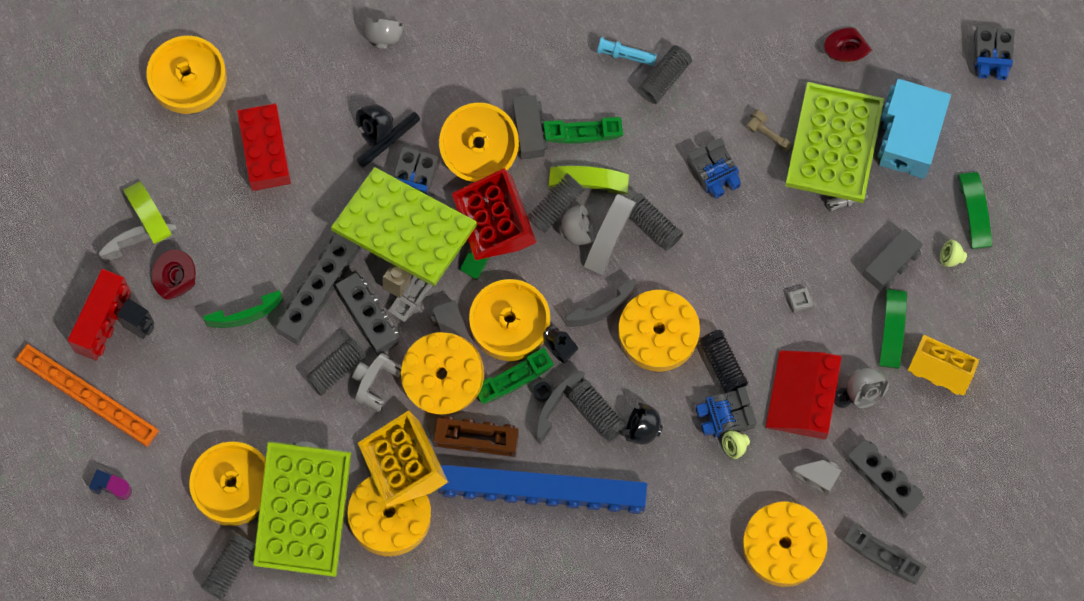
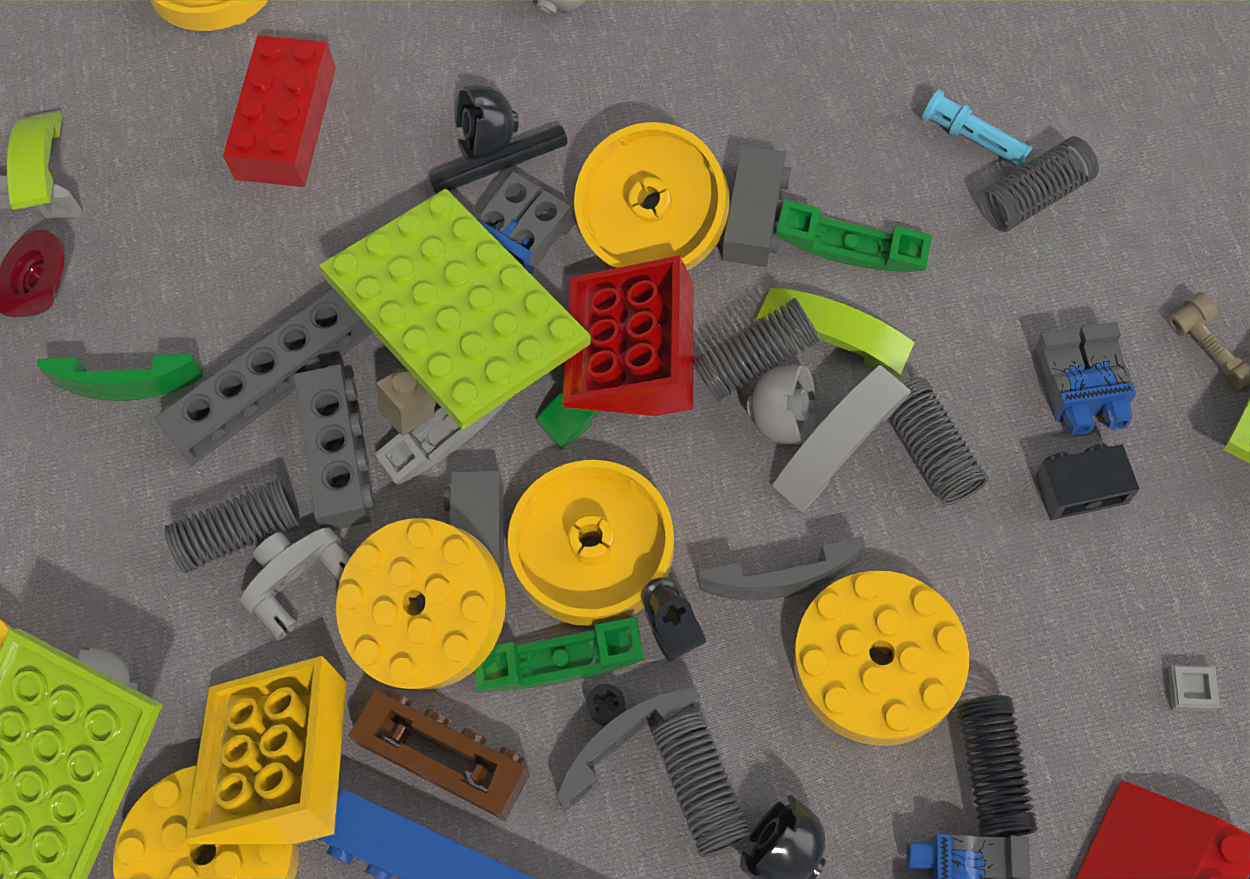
camera: 25 degrees right, 5 degrees down
(728, 219) = (1086, 481): none -> black brick

